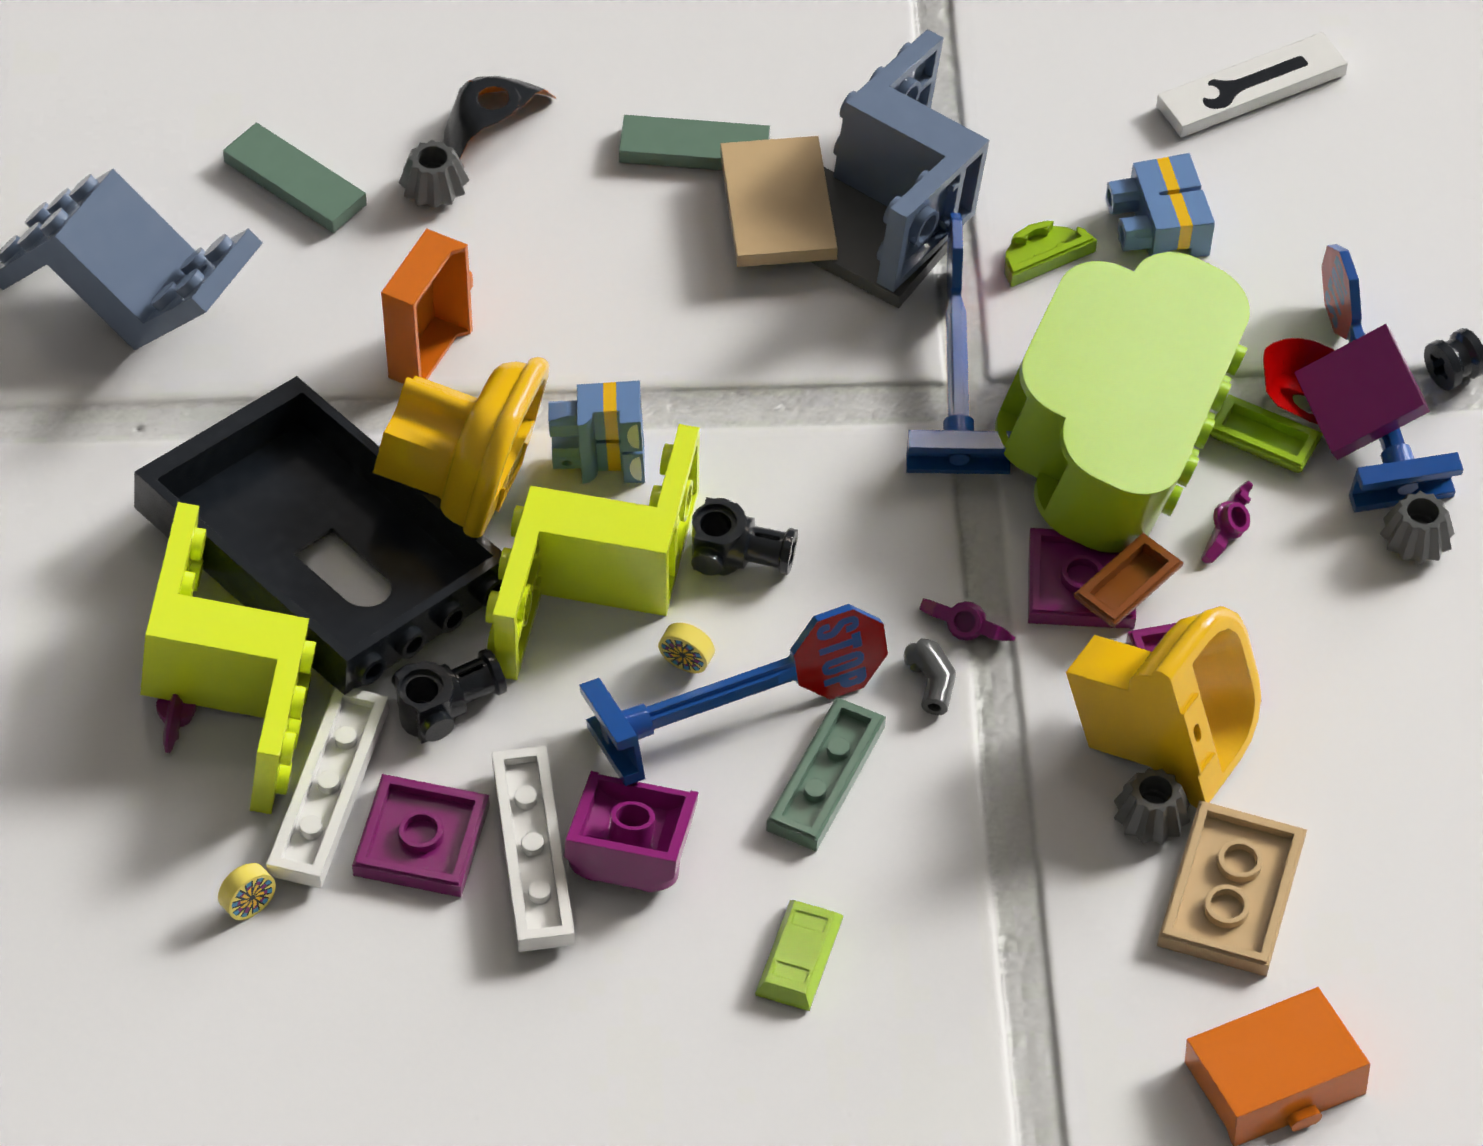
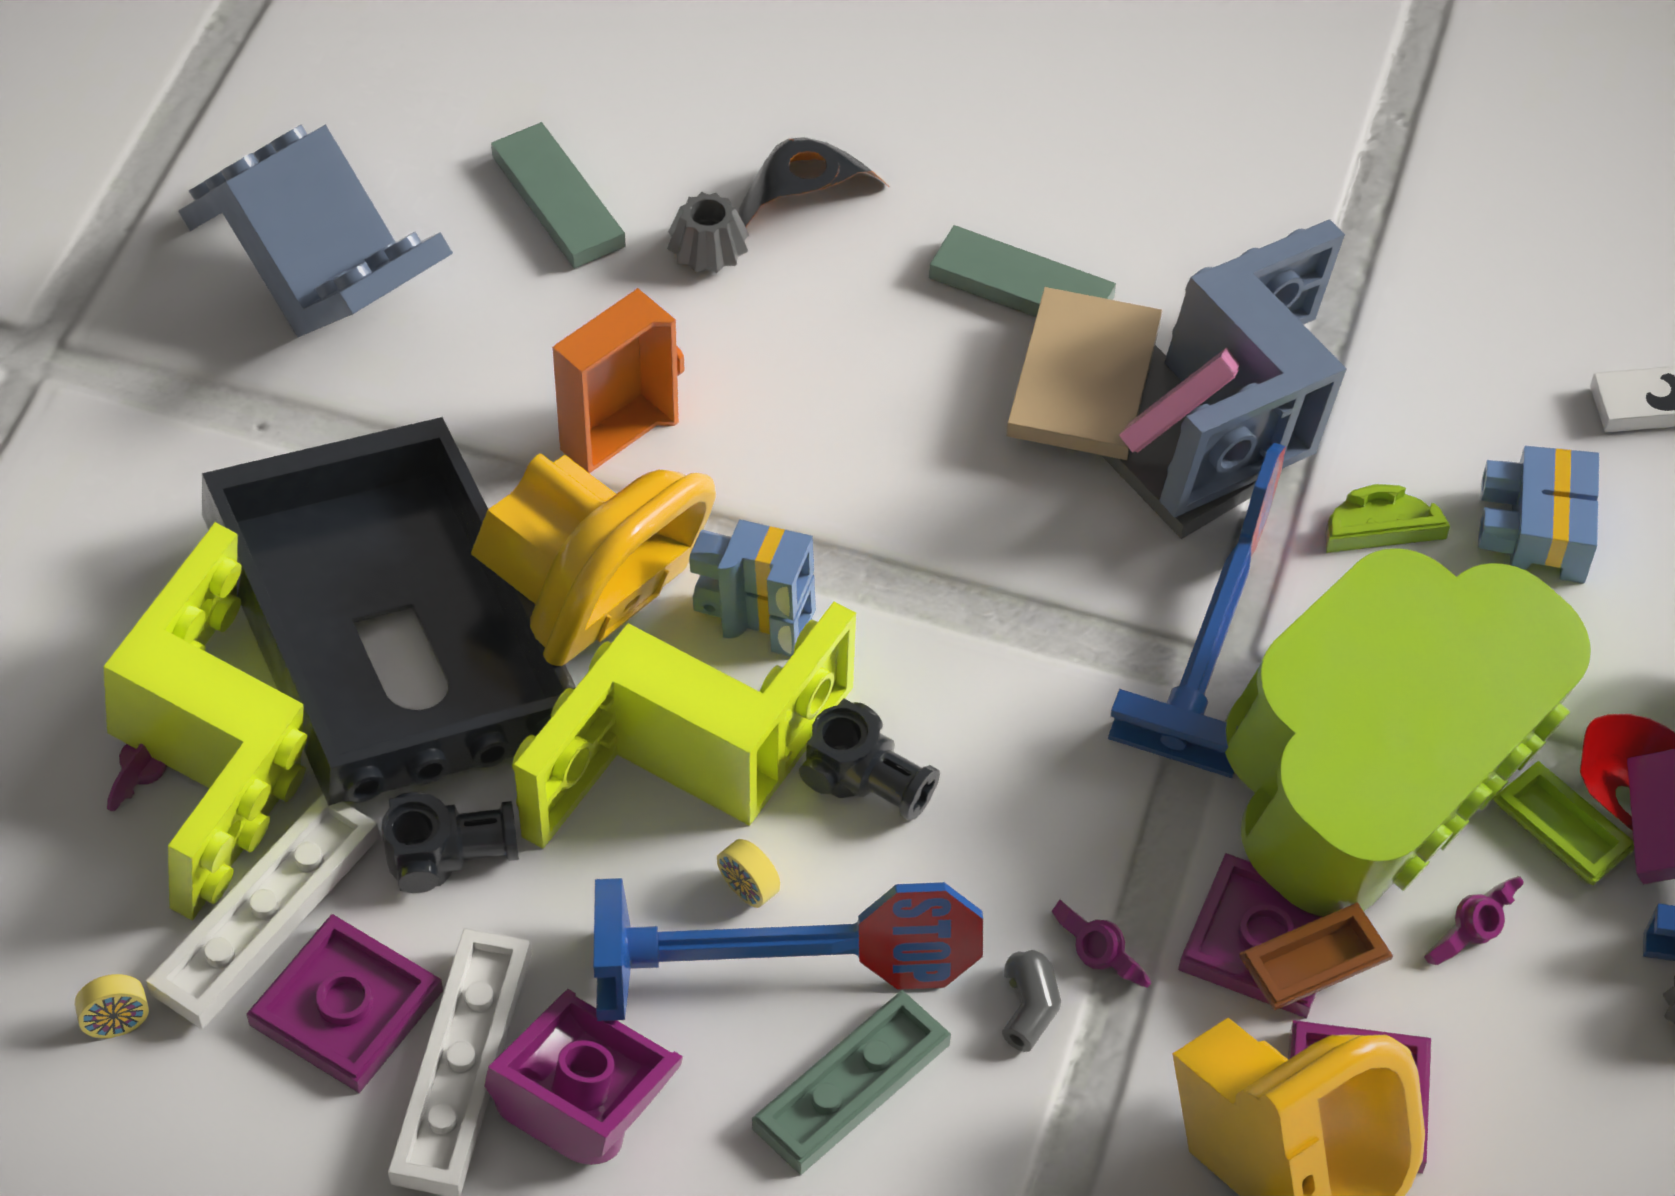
camera: 20 degrees right, 0 degrees up
(874, 198) = (1180, 401): none -> bright pink tile

